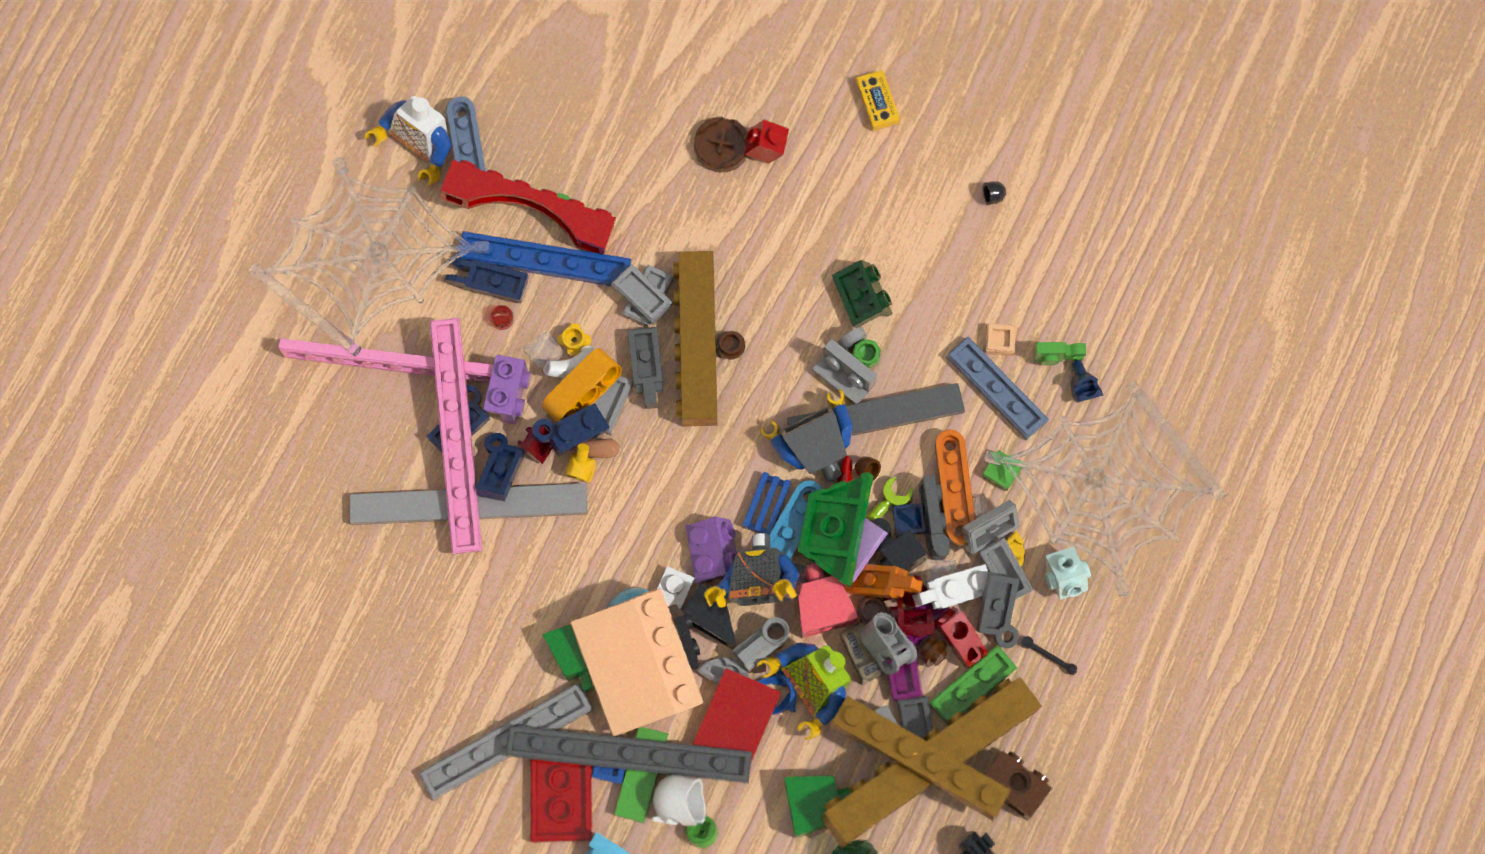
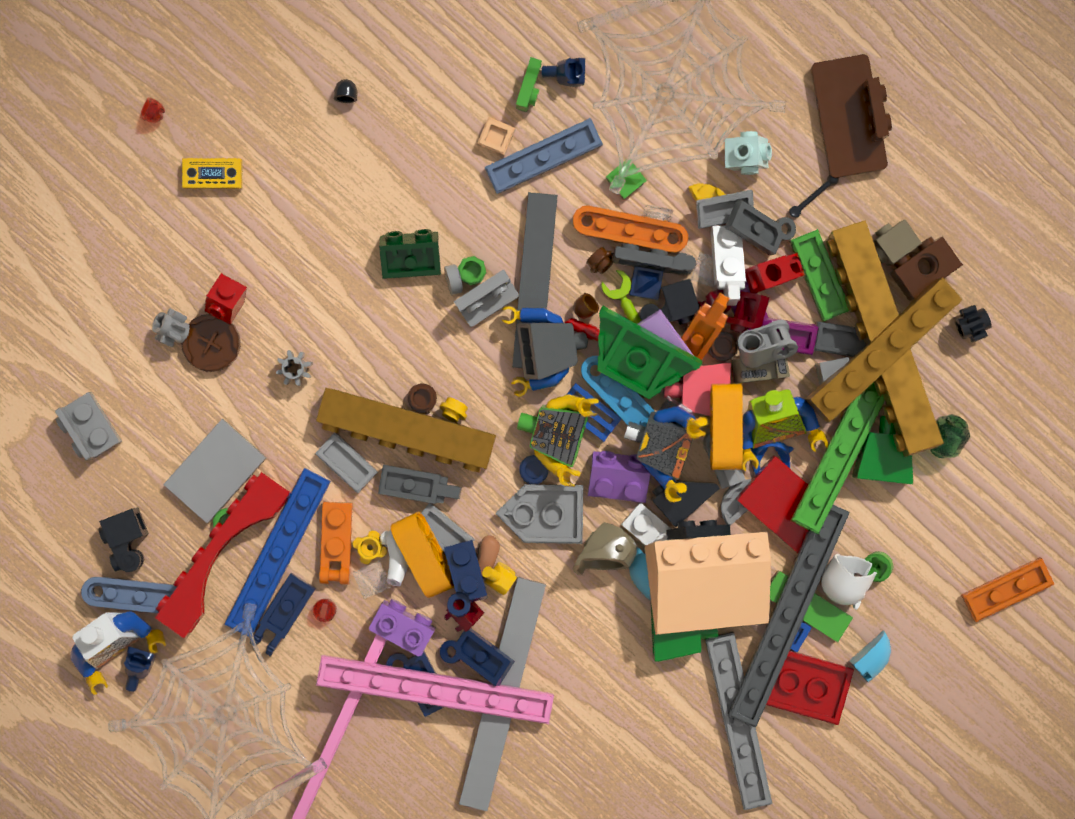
camera: 75 degrees left, 15 degrees up
(402, 167) = (137, 666): none -> dark blue piece
(520, 115) = (119, 533): none -> black brick
(569, 308) = (336, 541): none -> orange plate
(604, 181) = (215, 471): none -> light grey tile
(609, 60) = (87, 427): none -> light grey bracket
(637, 554) = (606, 550): none -> dark tan helmet
(642, 294) = (345, 469): light grey tile -> none
(656, 493) = (545, 514): none -> light grey tile
(695, 469) = (532, 470): none -> dark blue tile
(724, 103) = (170, 327): none -> light grey gear
(724, 214) = (300, 372): none -> light grey gear
(728, 376) = (453, 410): none -> yellow plate
(736, 477) = (558, 433): none -> torso
(794, 628) = (726, 427): none -> light orange beam
(806, 756) = (837, 460): none -> bright green tile
(914, 31) = (151, 110): none -> clear red hinge
(915, 468) = (600, 261): none -> reddish brown plate
(933, 652) = (780, 302): reddish brown plate -> none
(993, 525) = (681, 209): light grey tile -> none
(1030, 745) = (895, 242): none -> dark tan brick
(1138, 665) = (851, 115): none -> reddish brown bracket

